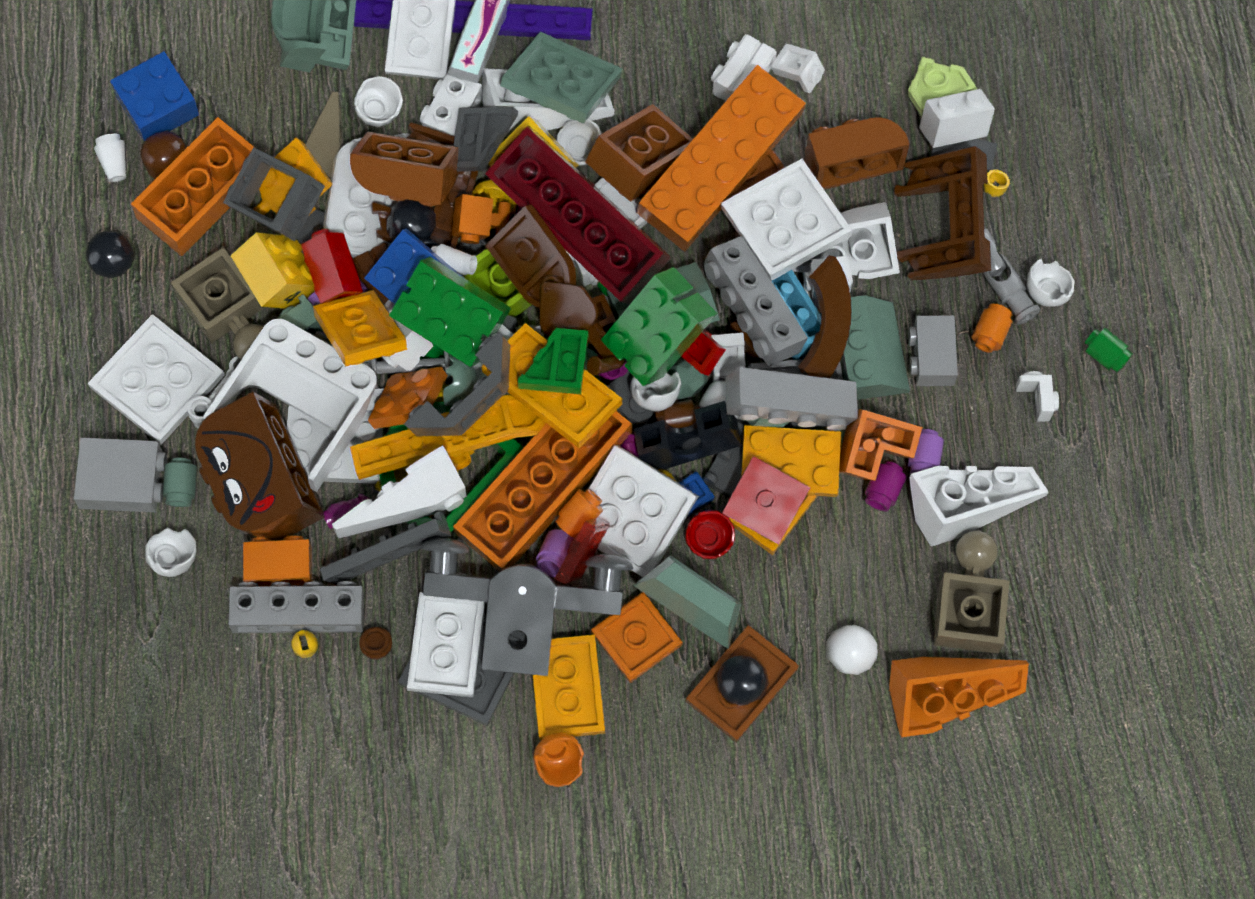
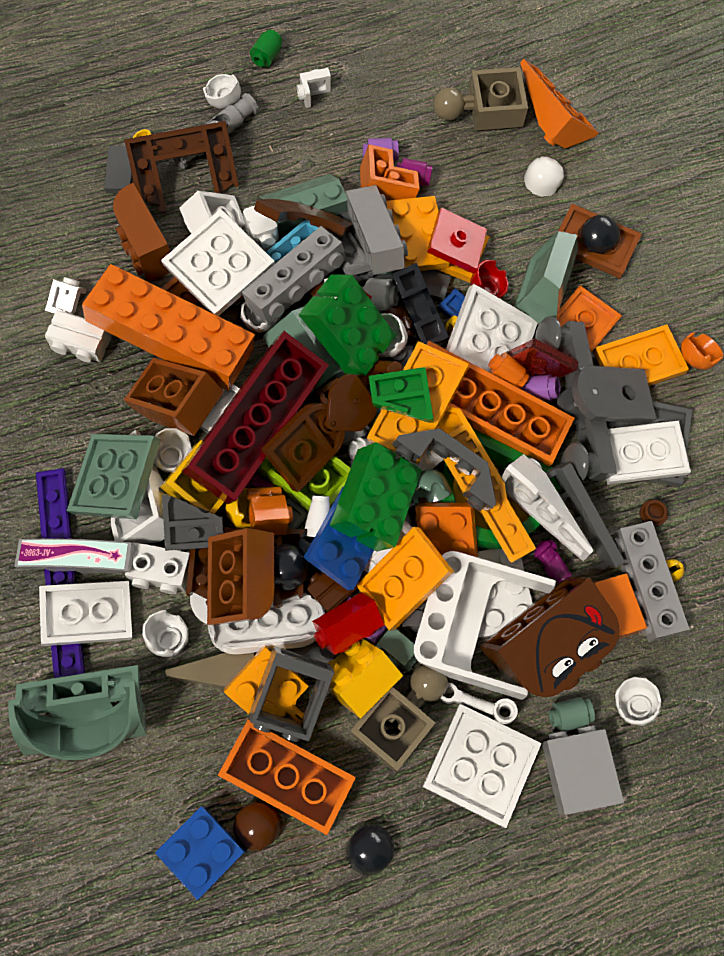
camera: 105 degrees left, 0 degrees up
(111, 154) = (271, 877): white cone -> none
(934, 350) = (295, 158): light grey brick -> none
(937, 81) = (65, 192): yellowish green plate -> none
(956, 118) = (94, 168): white brick -> none
(963, 500) = (409, 116): white wedge -> none
(992, 328) = (267, 123): orange brick -> none

